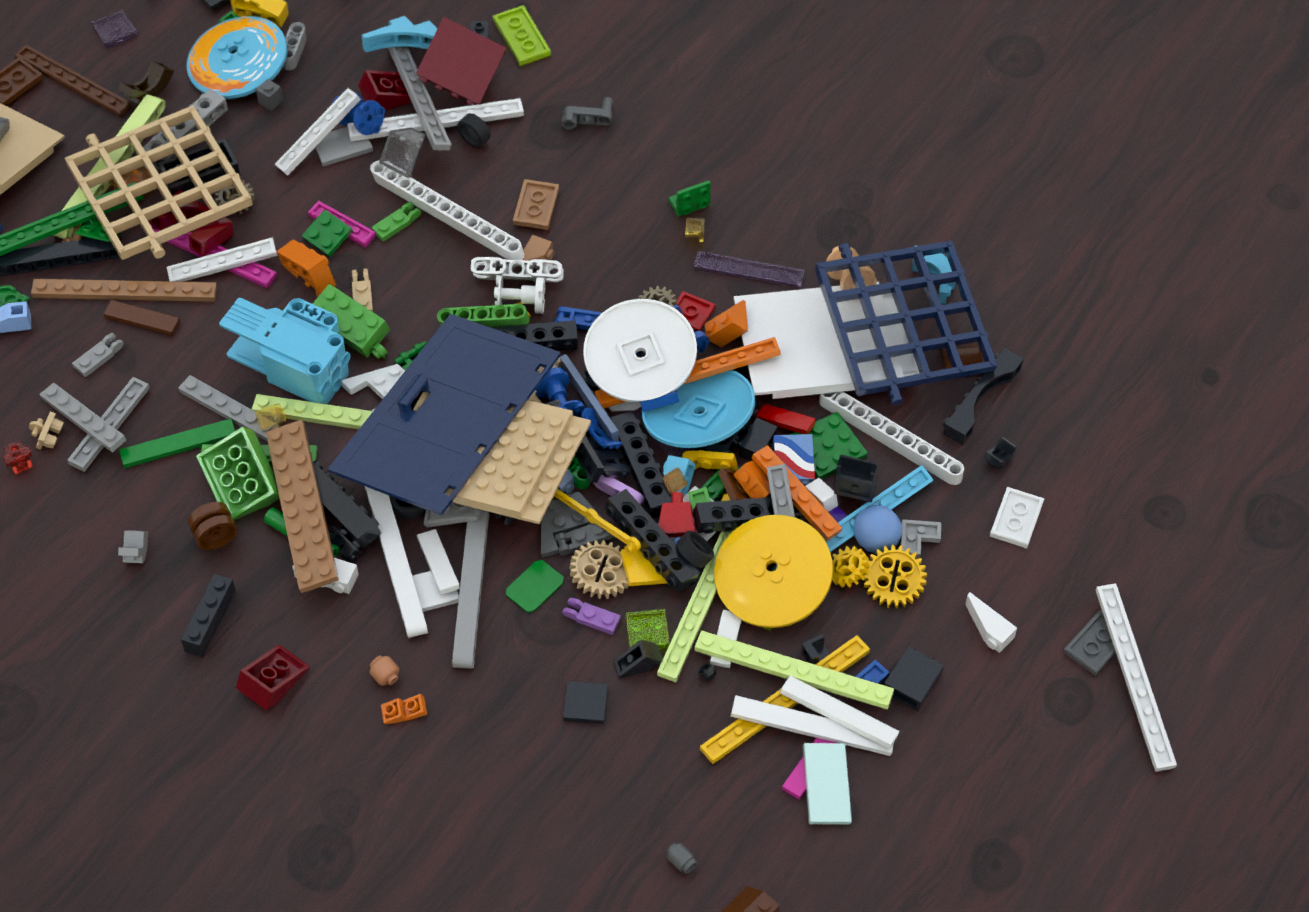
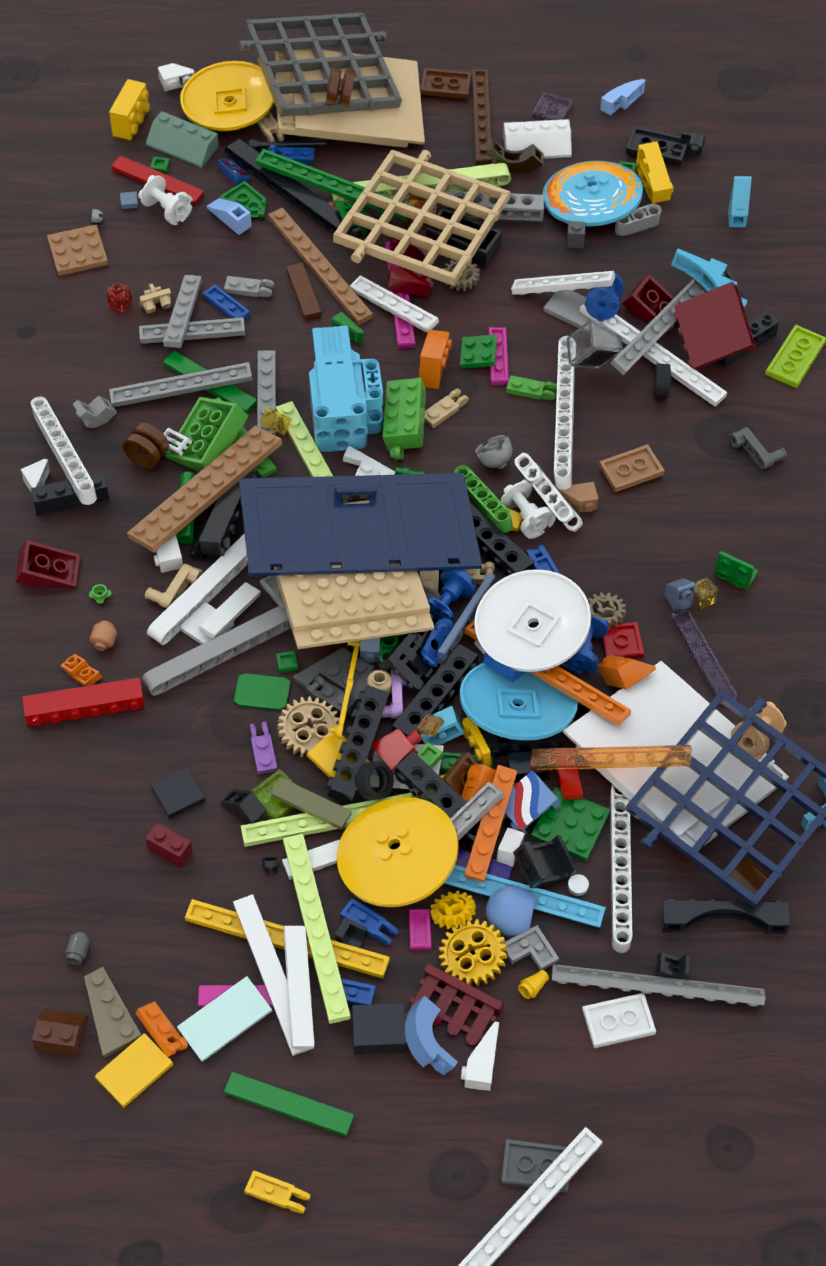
camera: 55 degrees right, 0 degrees up
(100, 382) = (225, 303): none -> blue tile
(135, 58) = (549, 136): none -> white slope
(163, 590) = (63, 450): none -> white beam
(164, 465) = (180, 384): none -> light grey plate
(164, 634) = (36, 474): none -> white slope
(214, 309) = (355, 332): none -> green slope
(238, 498) = (181, 446): none -> white tile
(330, 647) = (100, 589): none -> bright green plate
(373, 574) = (186, 575): none -> tan beam
(440, 723) = (83, 702): none -> red brick
(443, 281) = (496, 452): none -> light grey cylinder
(520, 551) = (286, 661): none -> green tile
(600, 493) = (380, 680): none -> tan head
(635, 734) = (169, 845): none -> dark red brick
(678, 608) = (311, 803): none -> olive tile
(684, 245) = (680, 594): none -> sand blue slope
(760, 867) = (111, 1017): none -> dark tan wing
(803, 835) = (161, 1029): none -> orange plate
(807, 631) = (374, 922): none -> blue hinge
(808, 375) = (611, 757): none -> clear orange tile
(823, 877) = (133, 1070): none -> yellow tile
(845, 602) = (420, 929): none -> dark pink tile
(885, 473) = (578, 885): none -> white tile
(931, 600) = (466, 1005): none -> dark red fence
(931, 781) = (289, 1104): none -> green tile
(945, 650) = (421, 1038): none -> medium blue arch
(949, 554) = (532, 985): none -> yellow cone
(1001, 832) = (275, 1191): none -> yellow hinge
(1006, 474) = (663, 985): none -> light grey plate

